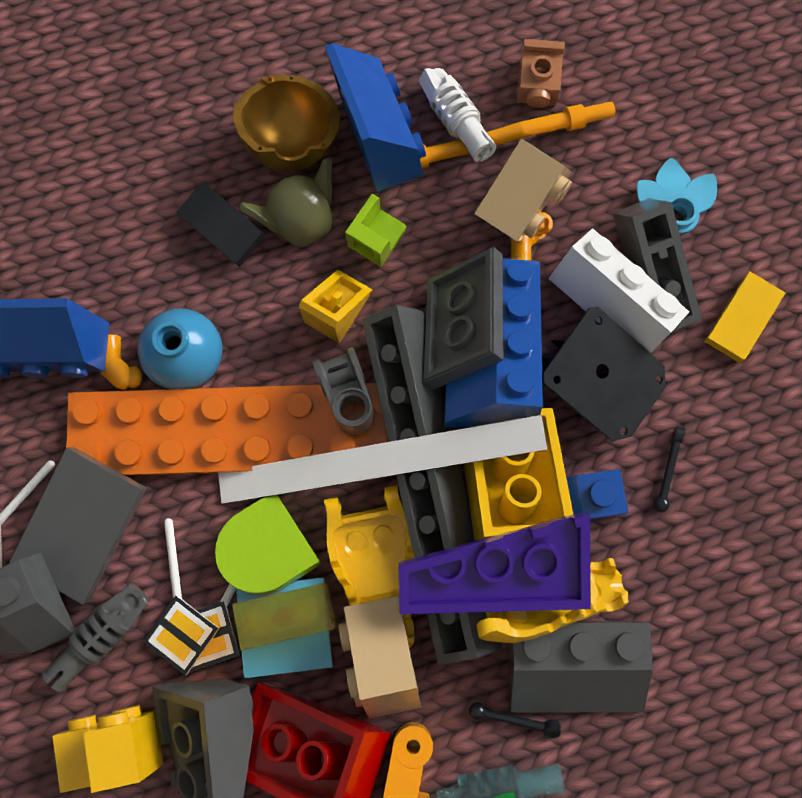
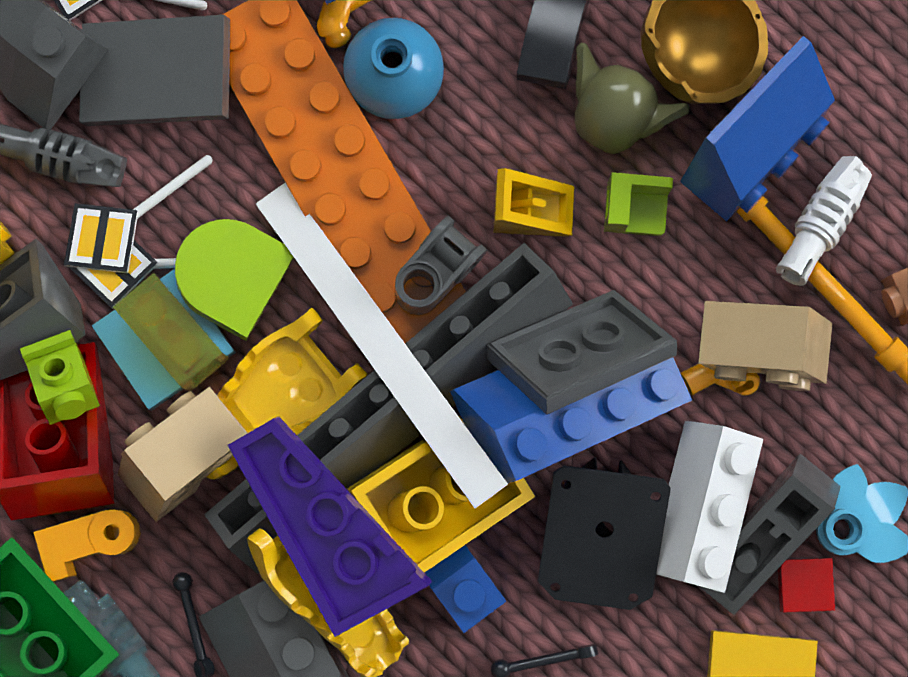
camera: 60 degrees right, 5 degrees up
(272, 724) = (60, 377): none -> lime brick
(707, 258) = (806, 585): none -> red tile

